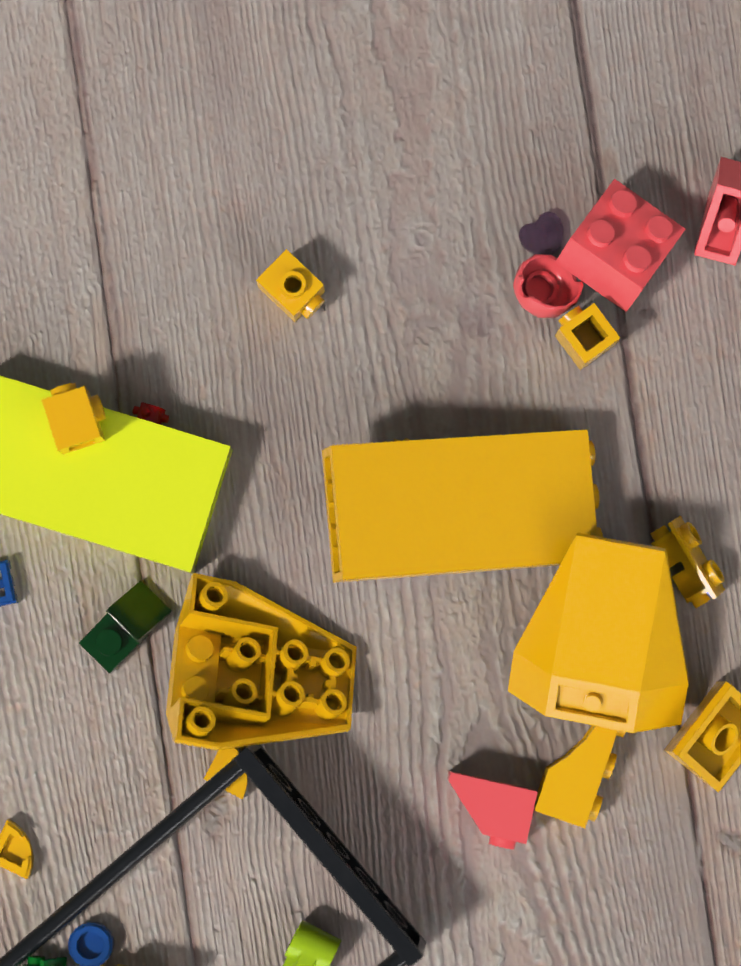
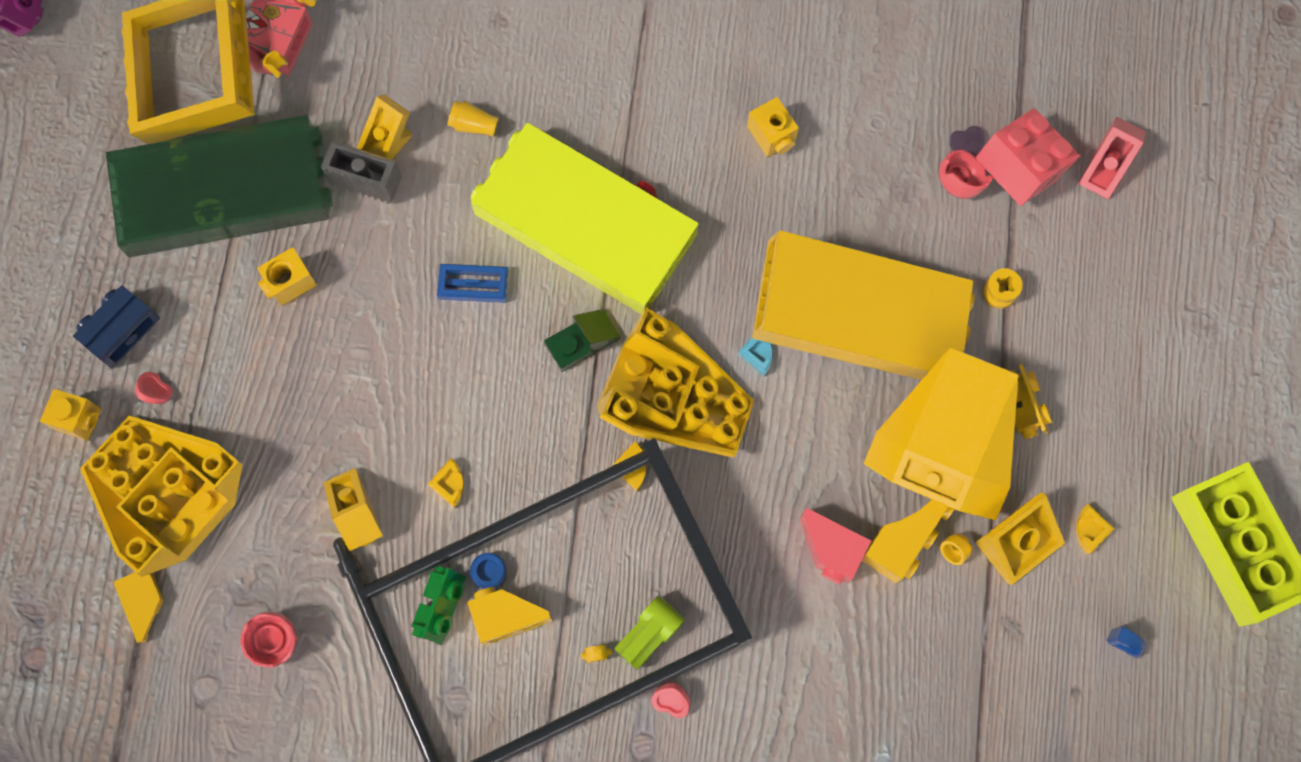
camera: 15 degrees right, 10 degrees down
(74, 417) = (589, 169): yellow brick -> none
(347, 592) = (757, 354): none -> medium azure tile
(586, 335) = (987, 215): yellow brick -> none
(623, 429) = (996, 294): none -> yellow wheel
(643, 767) = (961, 551): none -> yellow hinge

